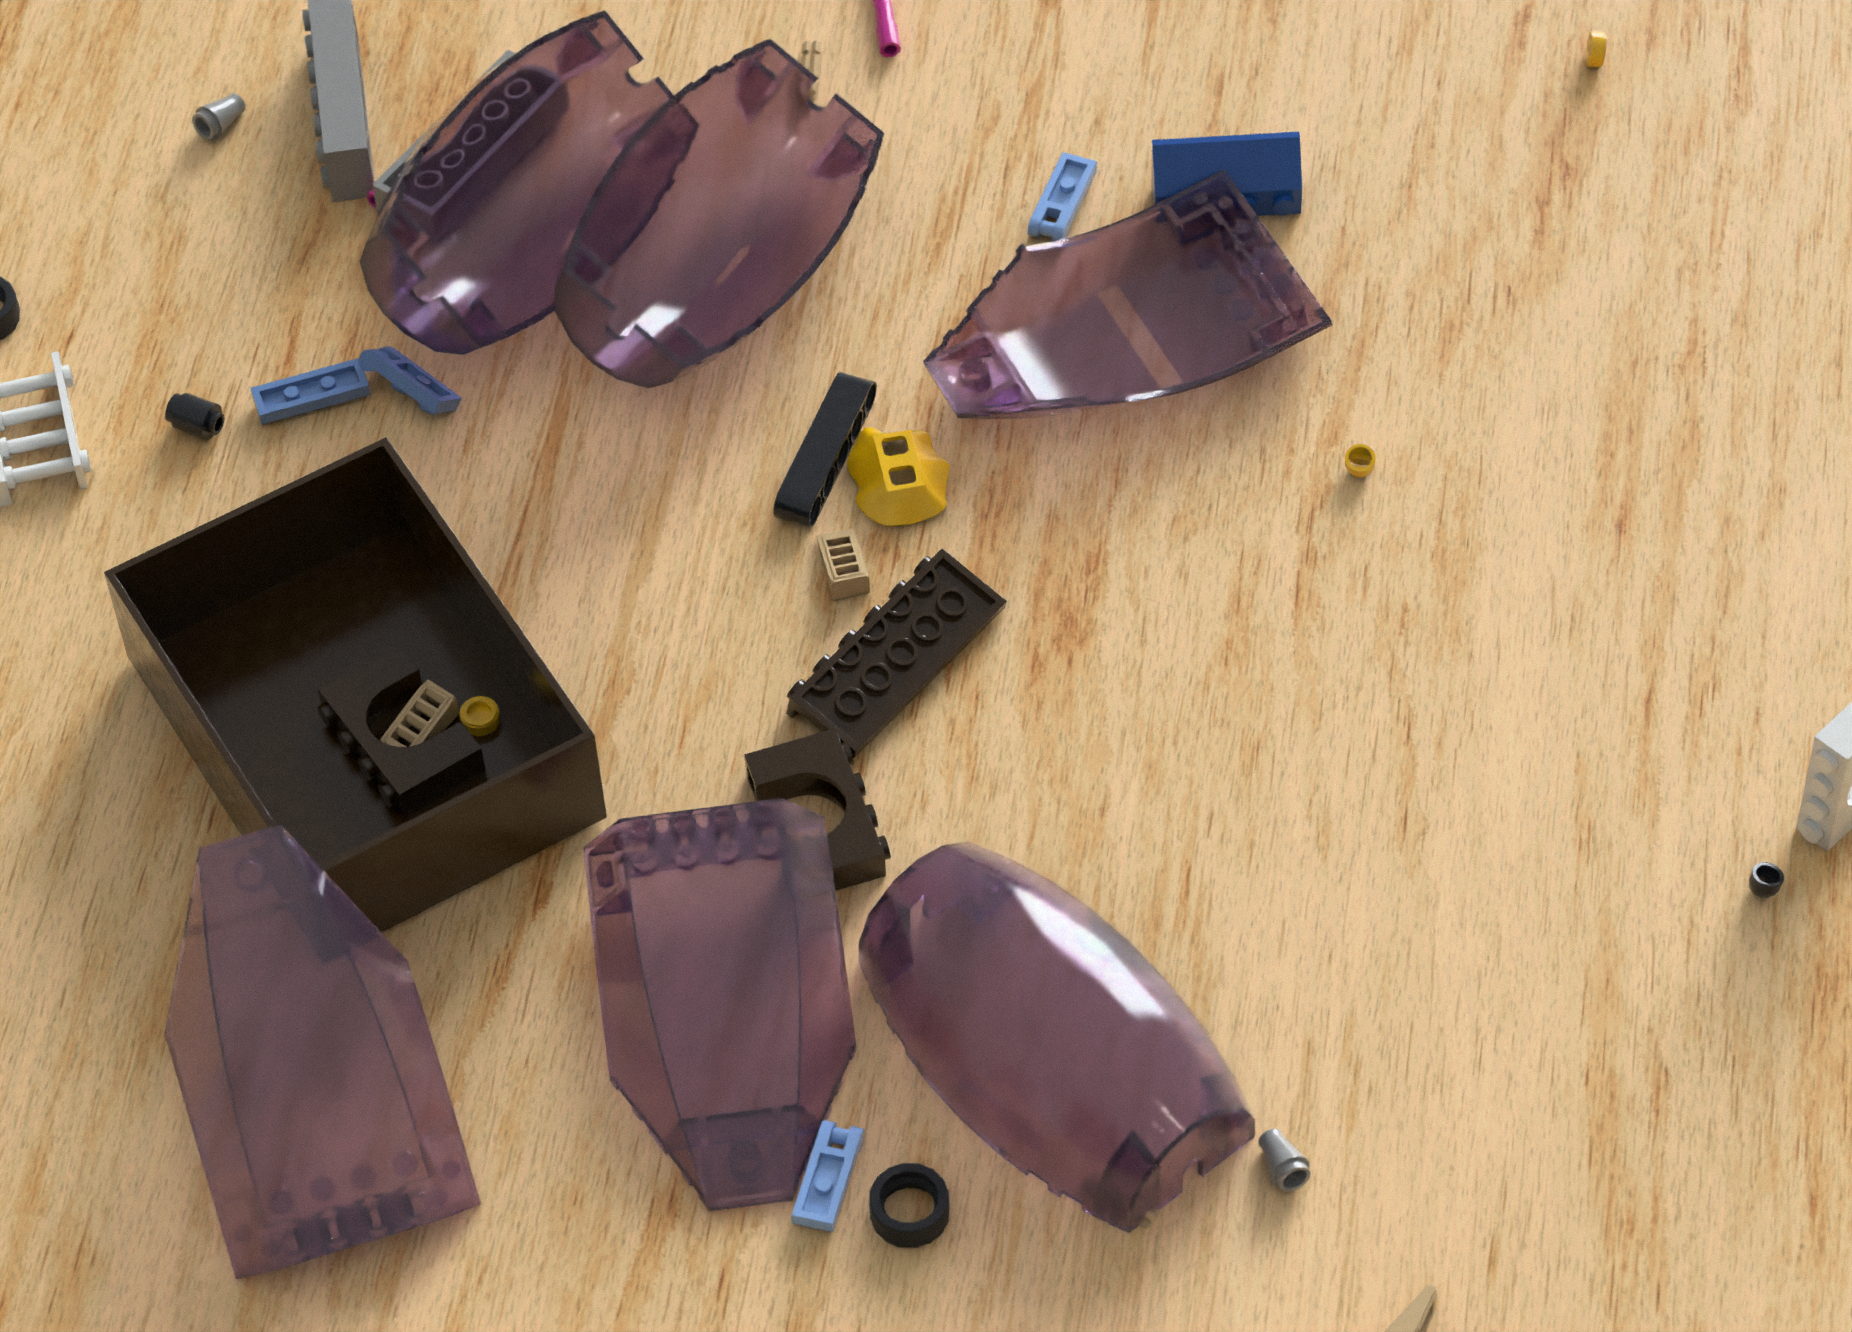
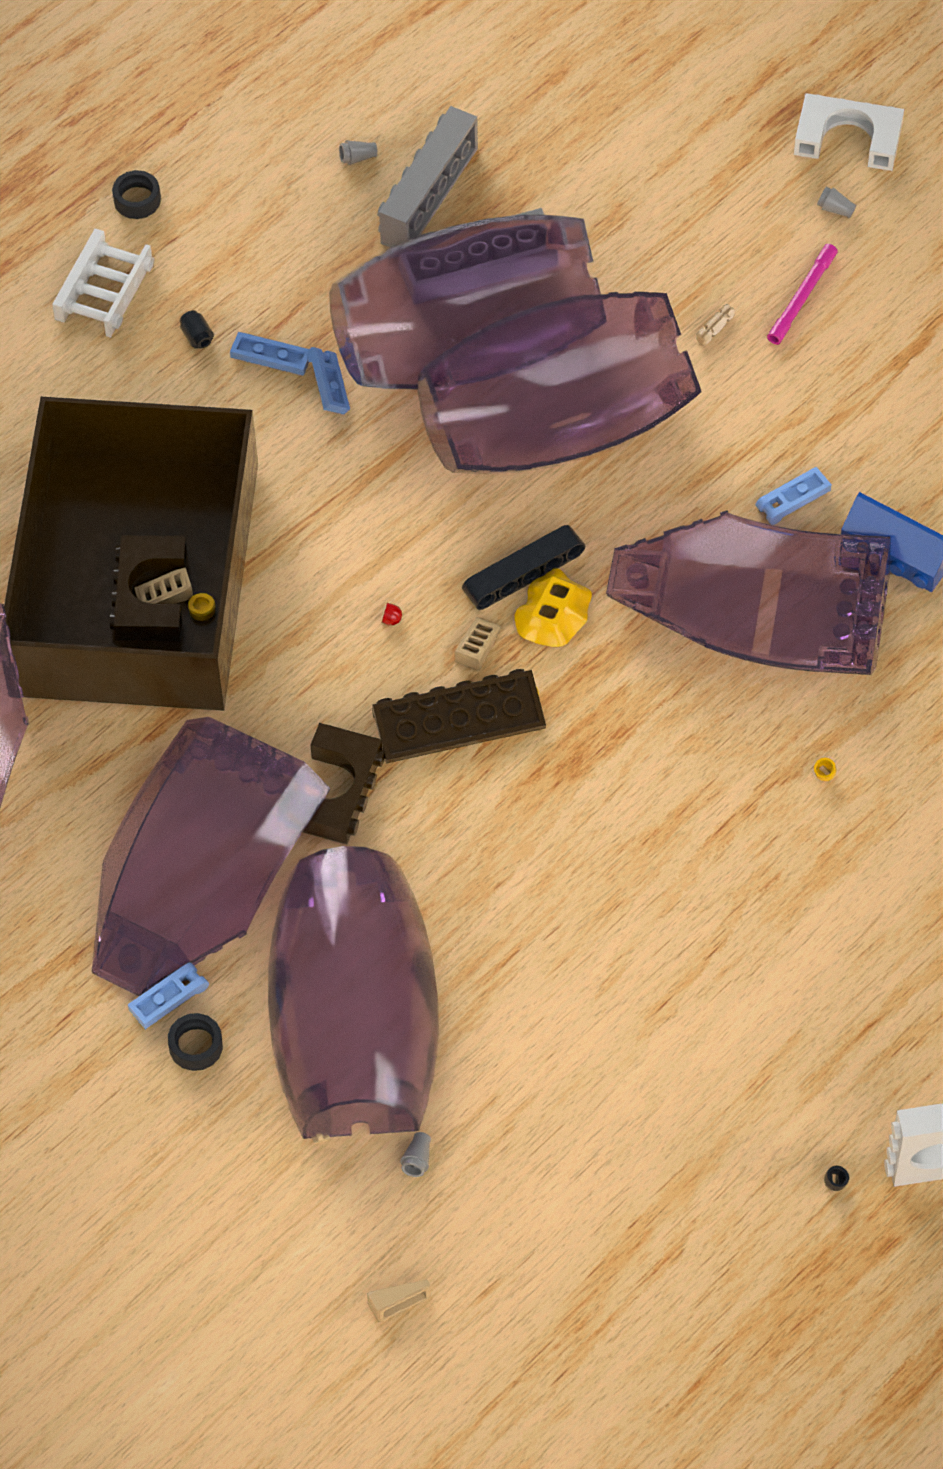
camera: 35 degrees right, 5 degrees up
(714, 591) = (392, 614): none -> red hinge

